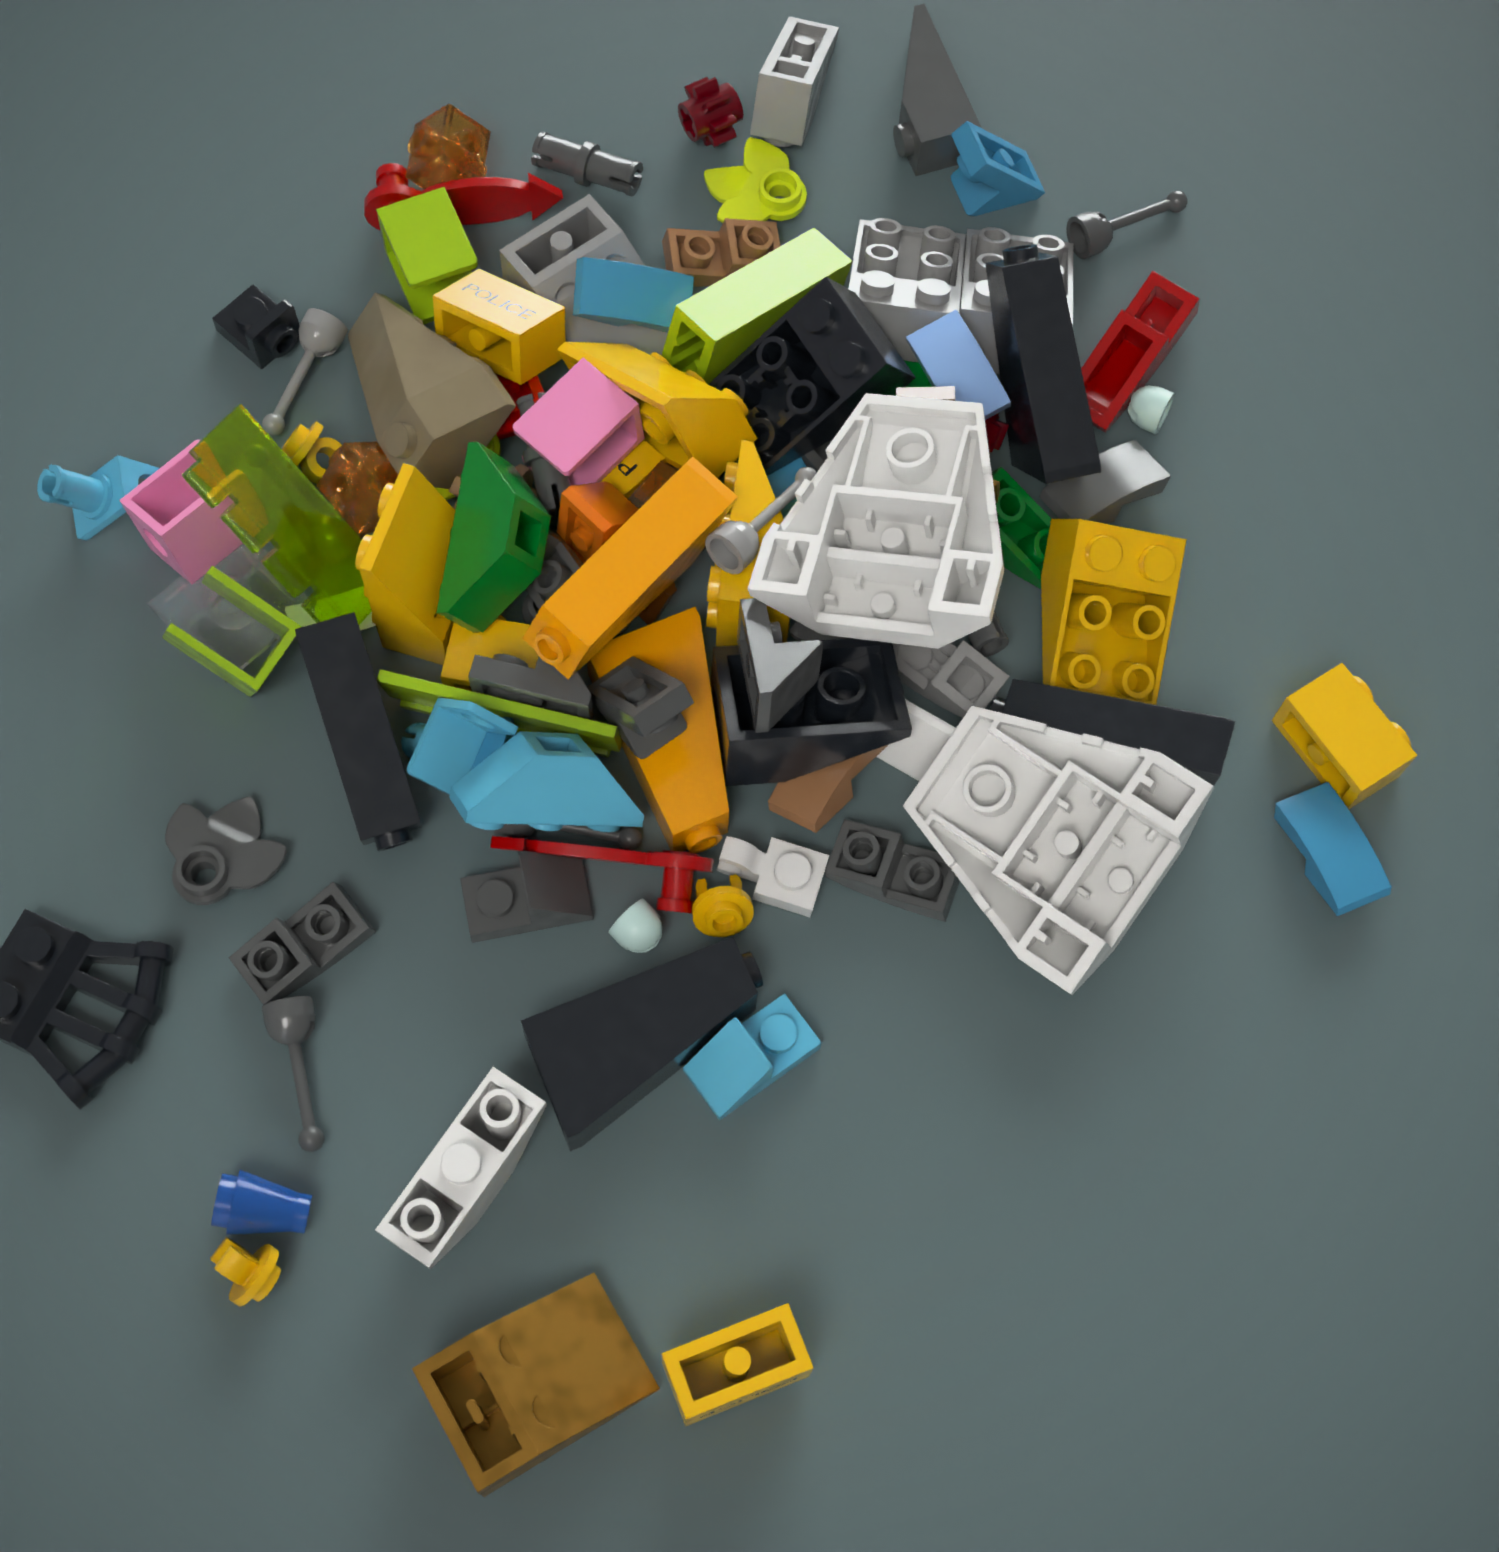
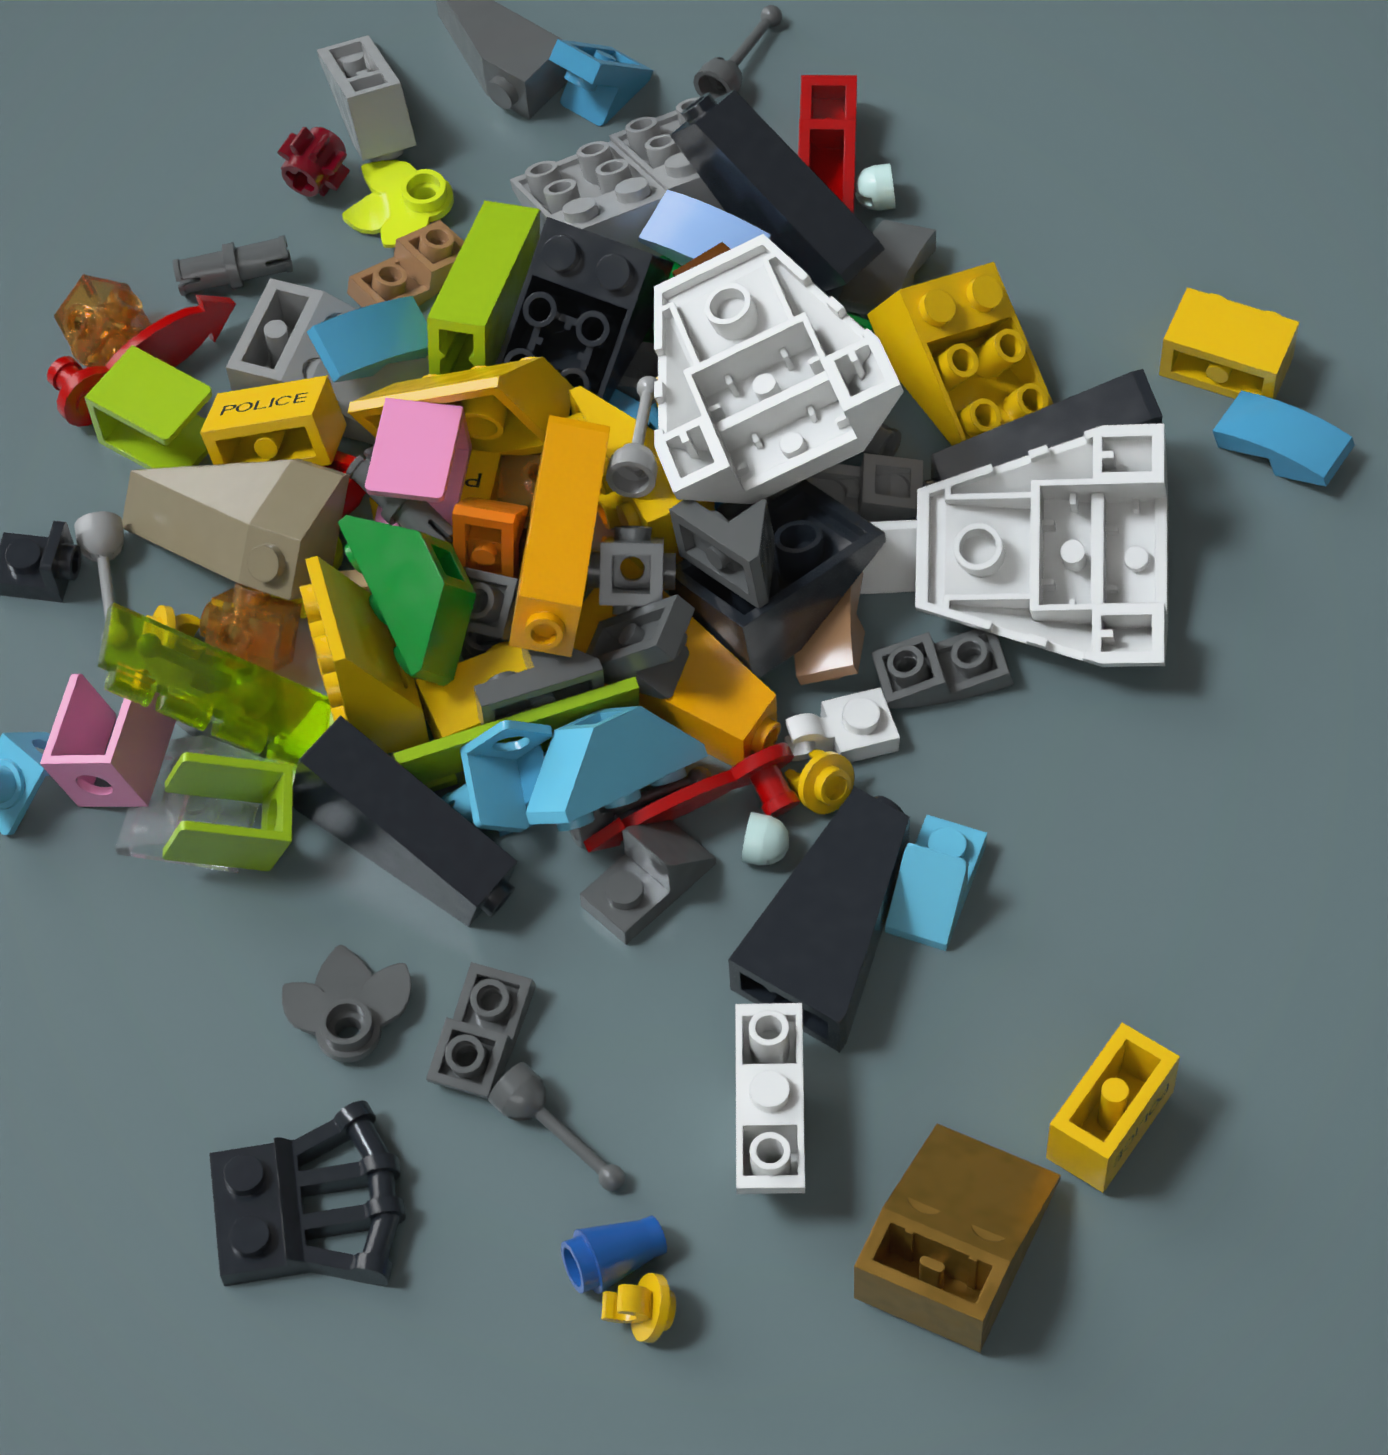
camera: 25 degrees left, 10 degrees down
(661, 633) = (627, 593): none -> dark grey brick

